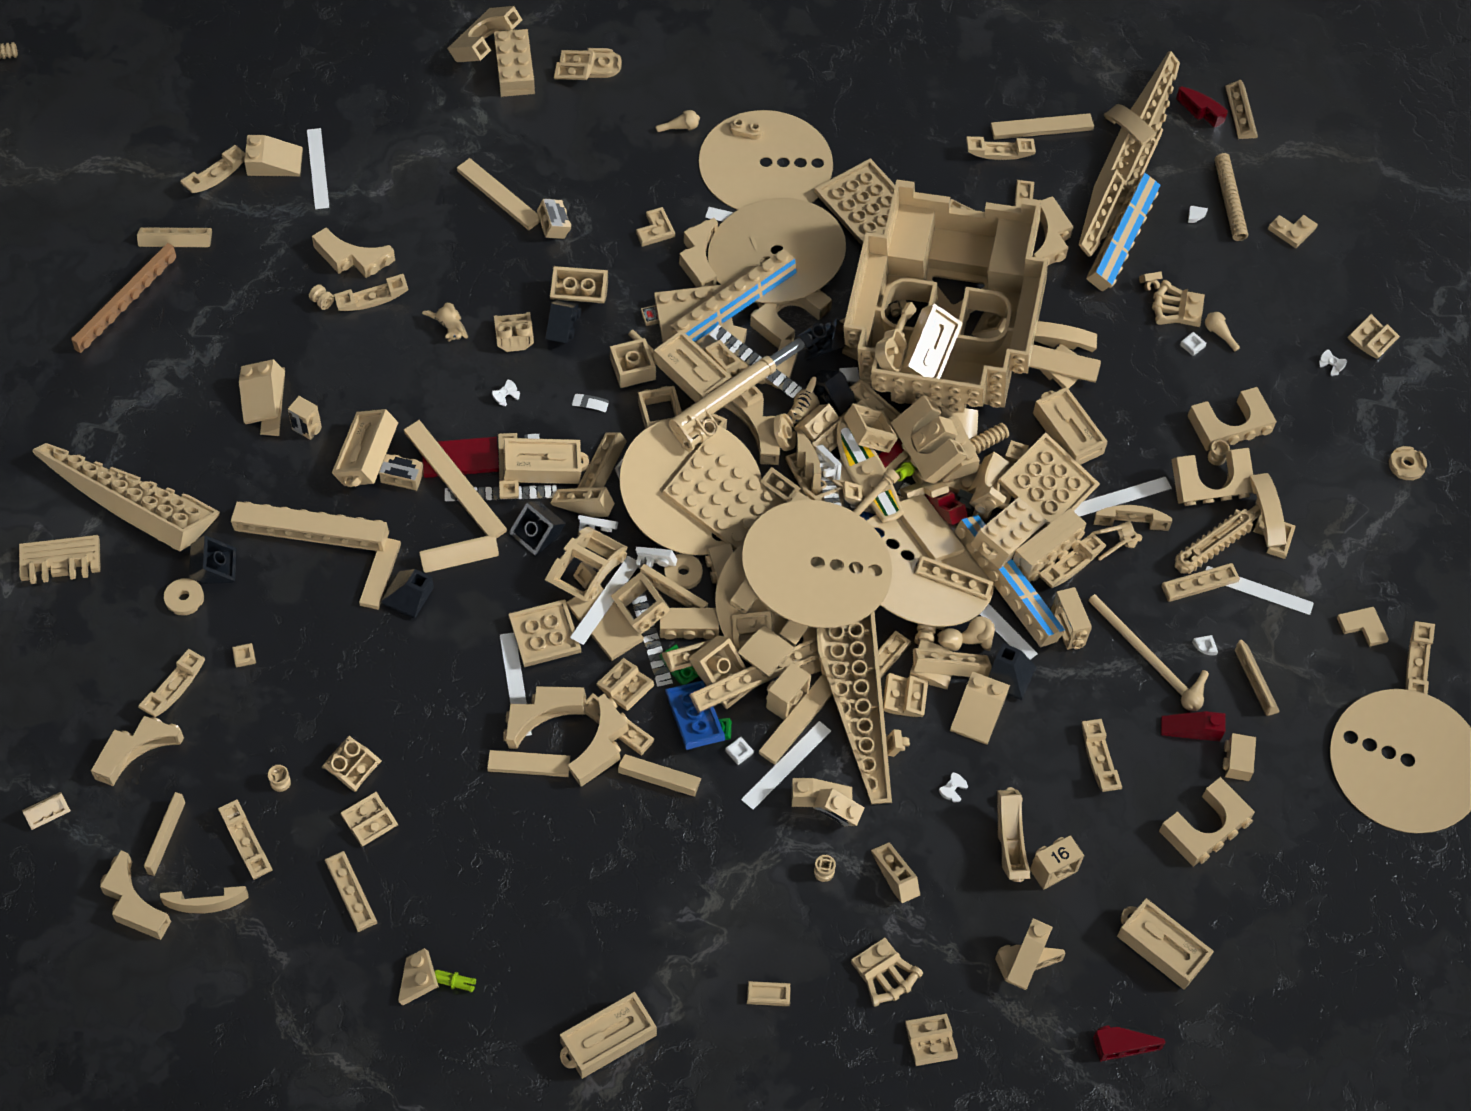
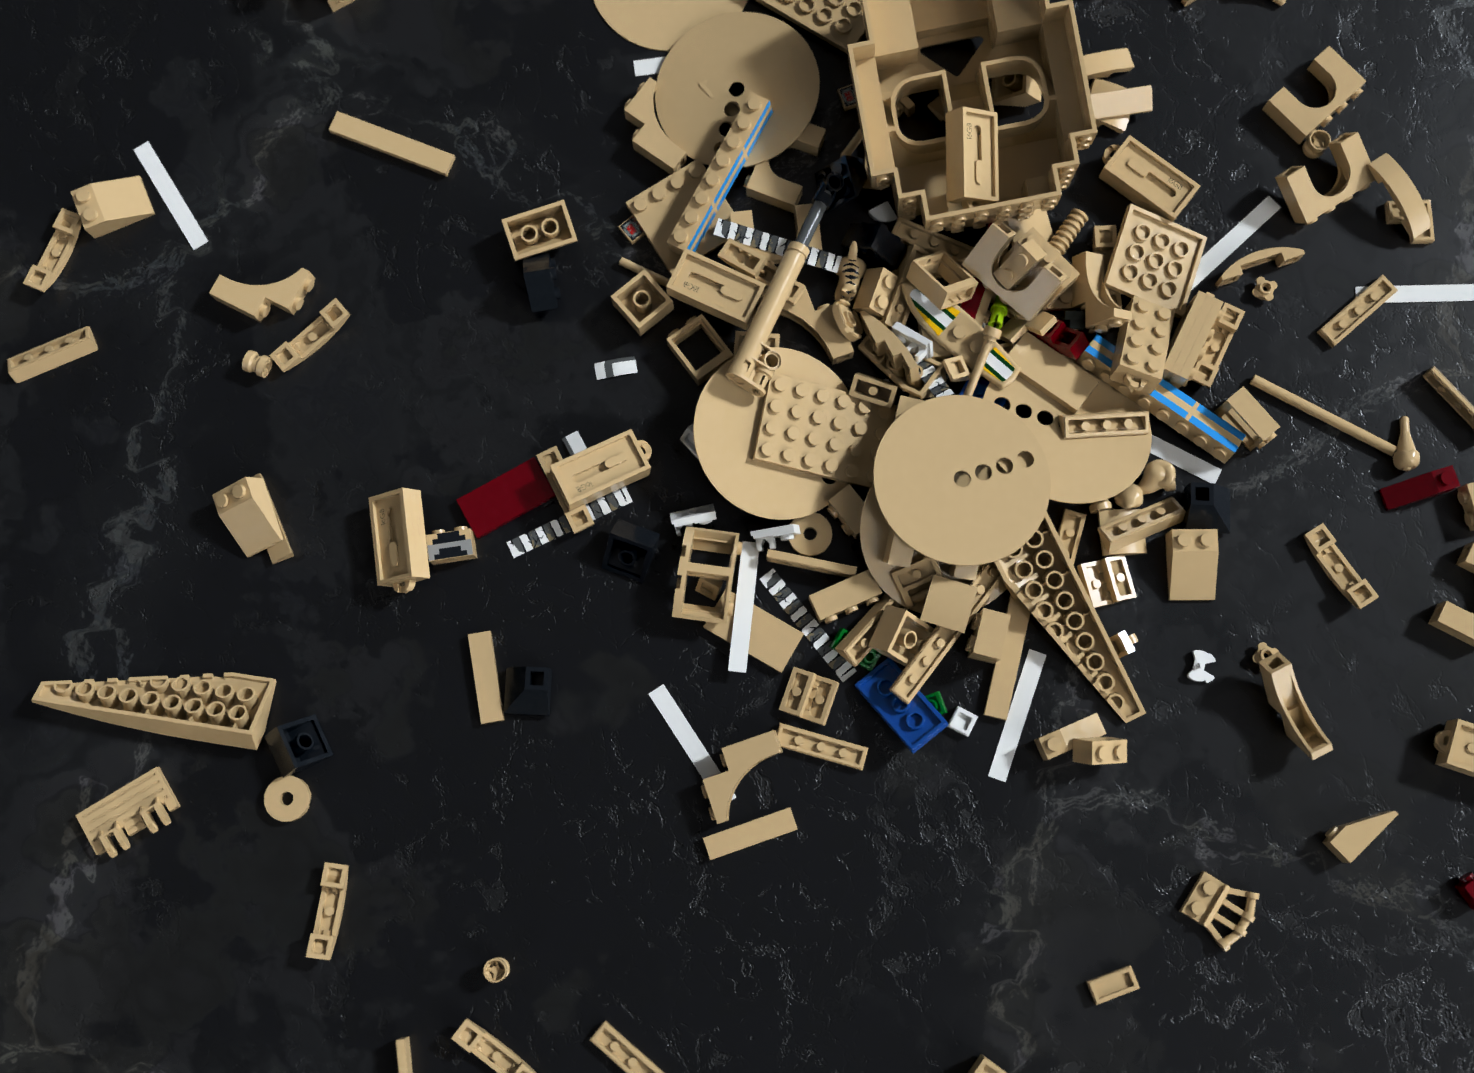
camera: 15 degrees left, 20 degrees up
(124, 297) = (34, 461): medium nougat plate -> none
(125, 747) = (313, 1008): tan arch -> none
(244, 655) = (387, 839): tan tile -> none
(304, 417) = (314, 528): tan brick -> none
(310, 526) = (383, 657): tan brick -> none
(351, 763) = (563, 919): tan slope -> none
(369, 819) = (613, 972): tan slope -> none
(449, 318) = (412, 330): tan animal -> none
(454, 480) = (514, 531): tan tile -> none
(459, 553) = (561, 619): tan slope -> none
(509, 388) = (519, 389): white piece -> none
(514, 332) = (492, 316): tan slope -> none
(544, 633) = (696, 674): tan plate -> none
(553, 218) = (470, 152): tan brick -> none
(585, 501) = (667, 496): tan slope -> none
(603, 461) = (663, 440): tan slope -> none
(603, 750) = (823, 790): tan arch -> none
(633, 590) = (767, 589): tan window -> none
(659, 228) = (592, 114): tan tile -> none
(659, 775) = (892, 786): tan slope -> none
(823, 872) = (1107, 822): tan wheel -> none
(893, 346) = (935, 177): tan piece -> none
(897, 873) = (1185, 793): tan slope -> none
(931, 1039) = (1297, 963): tan slope -> none
(1029, 954) = (1367, 835): tan slope -> none
(1056, 861) = (1348, 713): tan brick -> none
(1124, 530) = (1258, 286): tan plant -> none
(1193, 344) = (1233, 16): white tile -> none
(1205, 645) = (1392, 384): white tile -> none
(1217, 539) = (1359, 249): tan gear -> none

